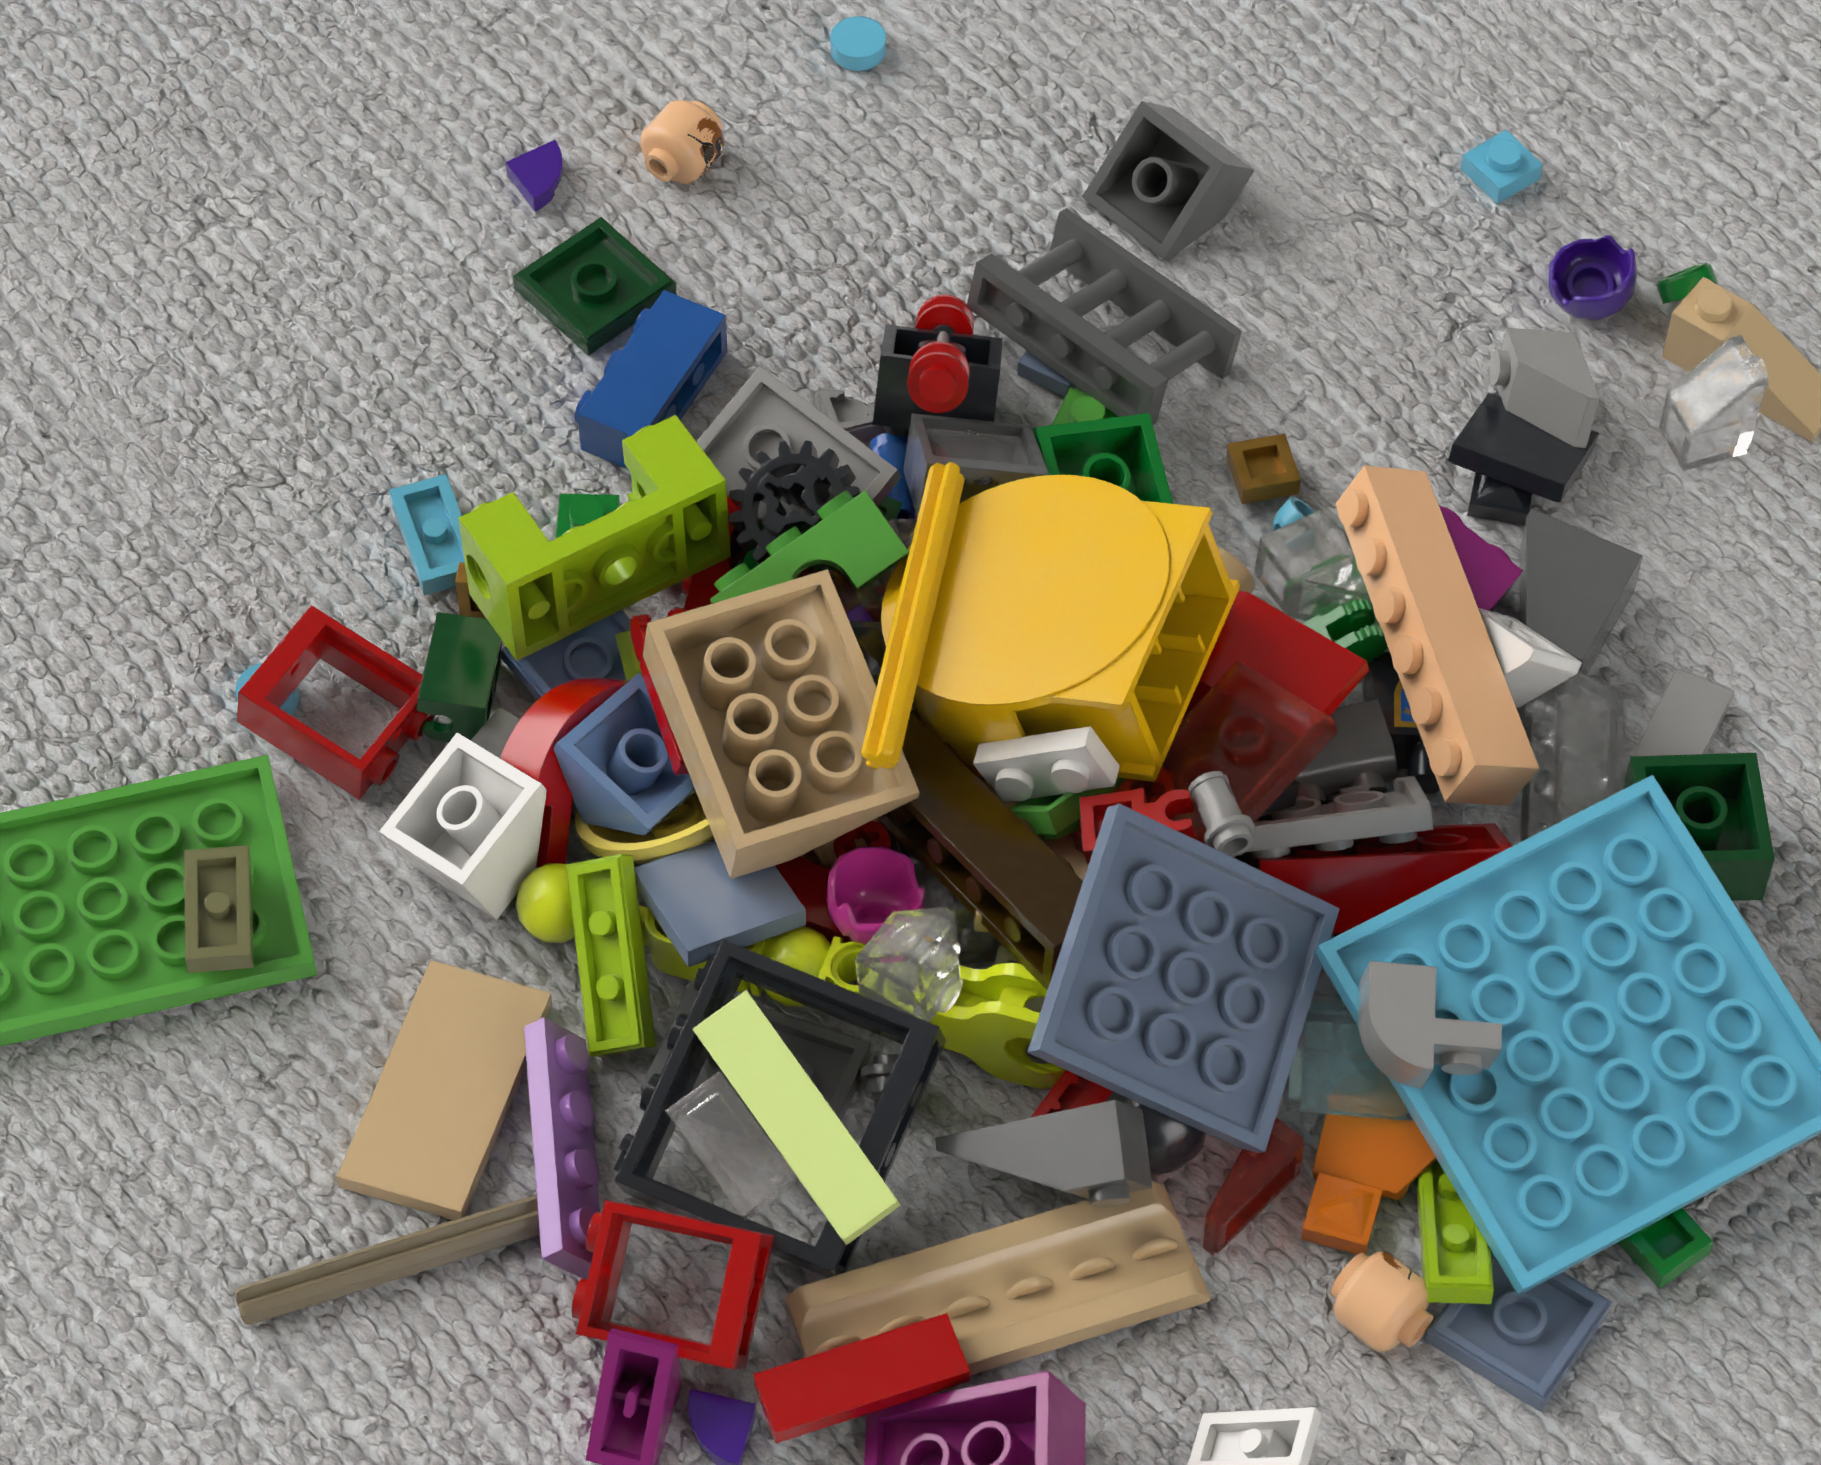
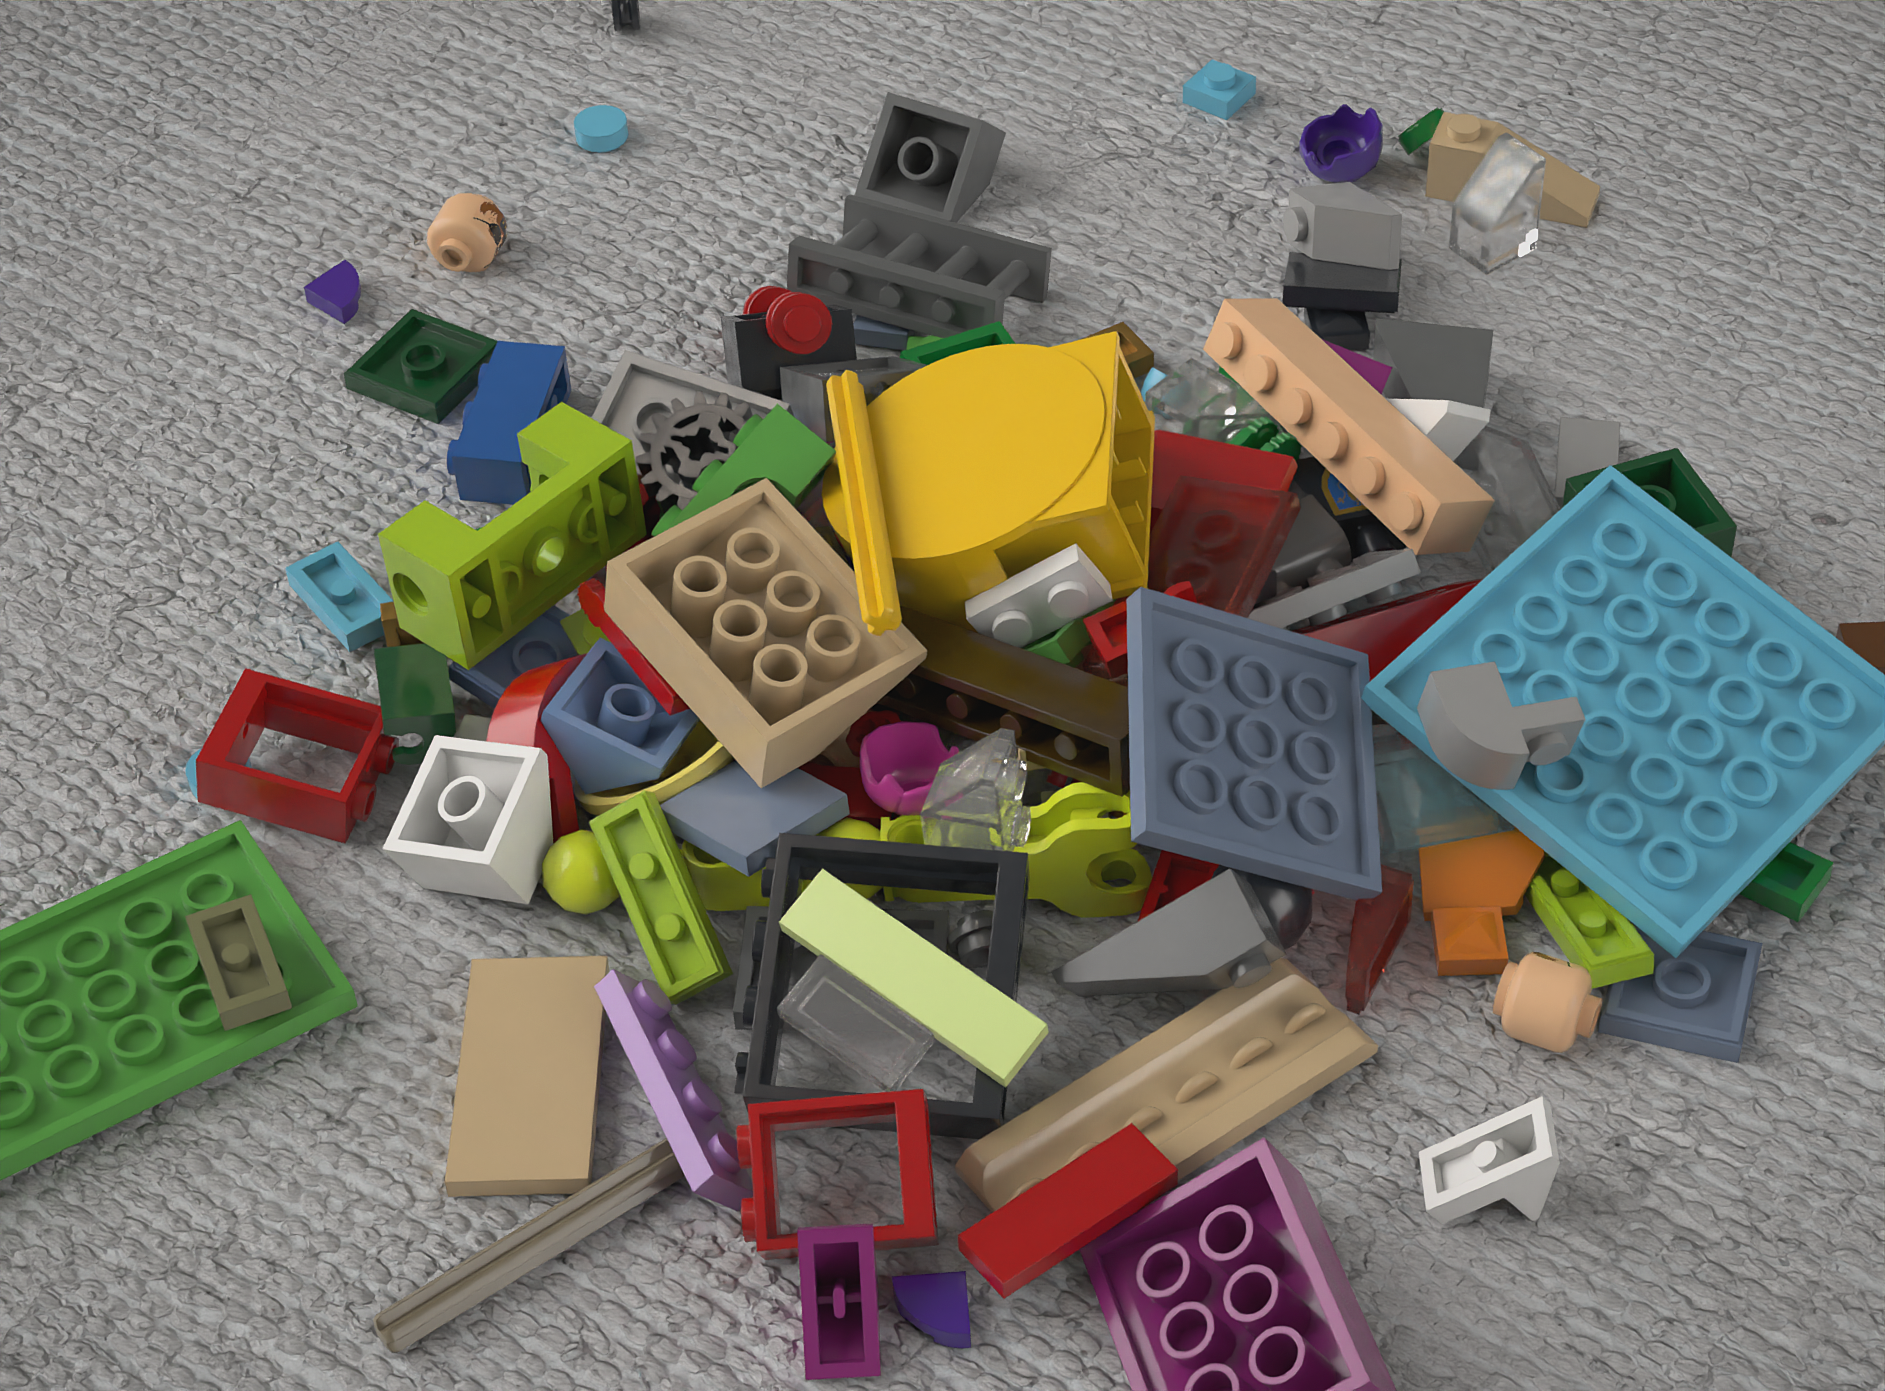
camera: 15 degrees left, 10 degrees down
(1225, 824) = (1225, 592): light grey pin -> none

